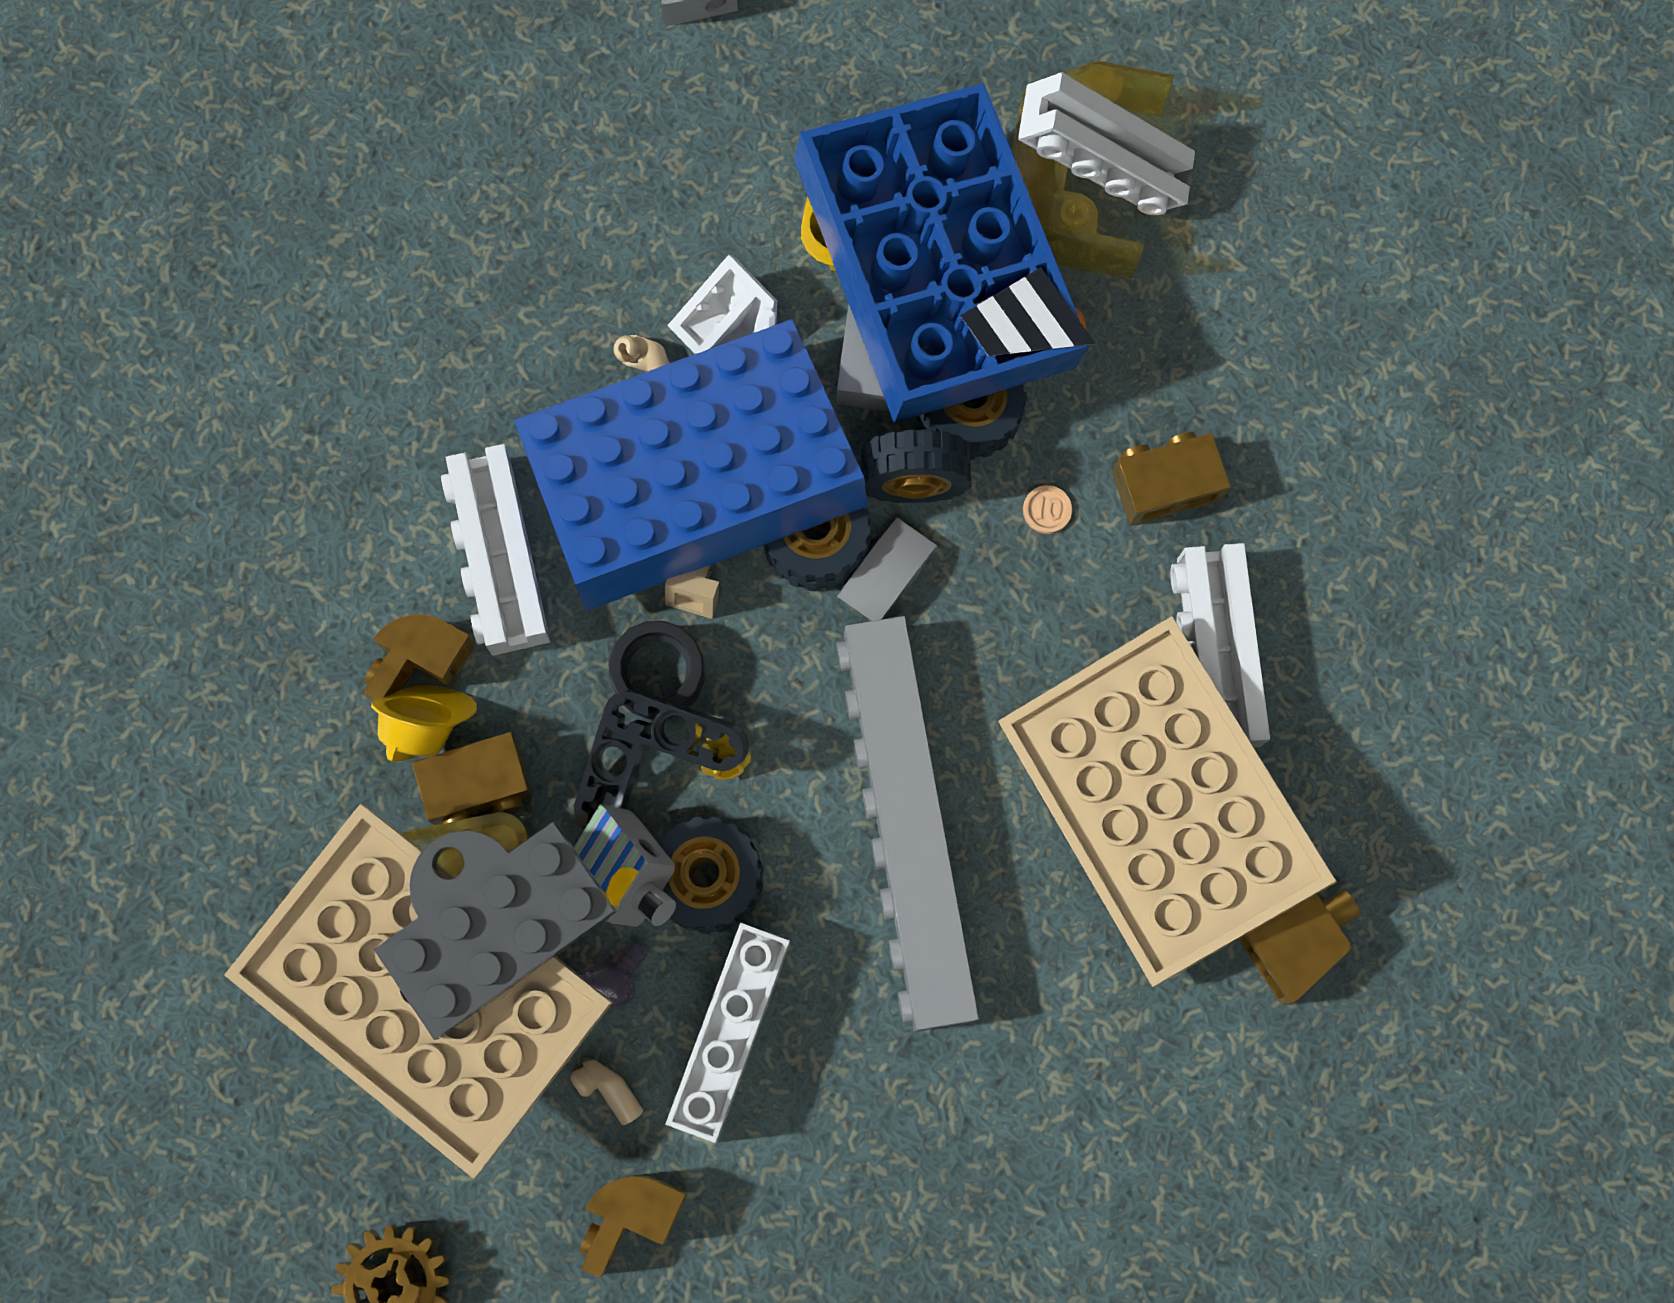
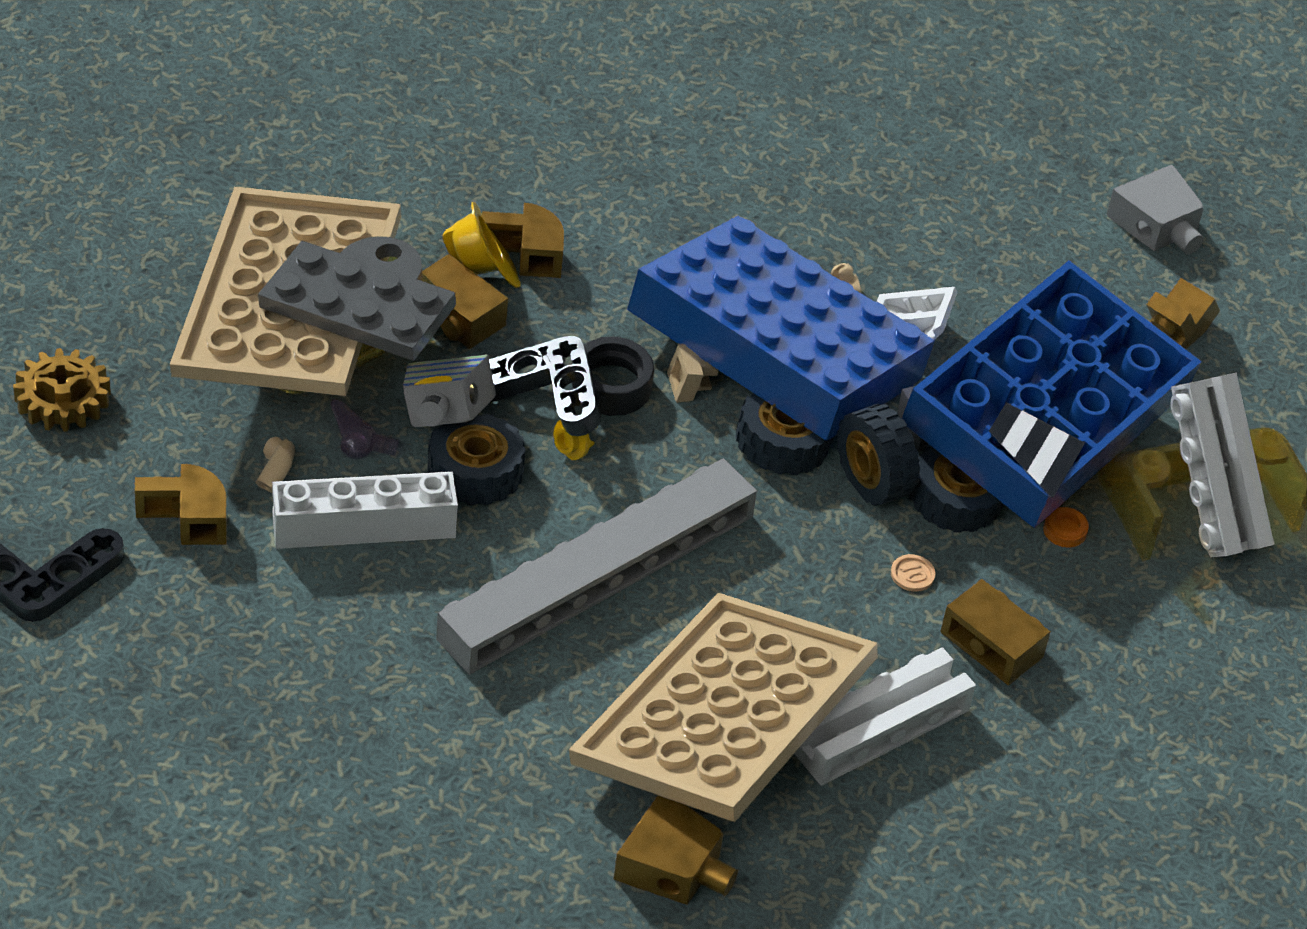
camera: 60 degrees right, 30 degrees down
(496, 550) = (609, 268): white brick -> none
(859, 48) = (1184, 312): none -> pearl gold brick
(887, 571) = (800, 485): light grey slope -> none

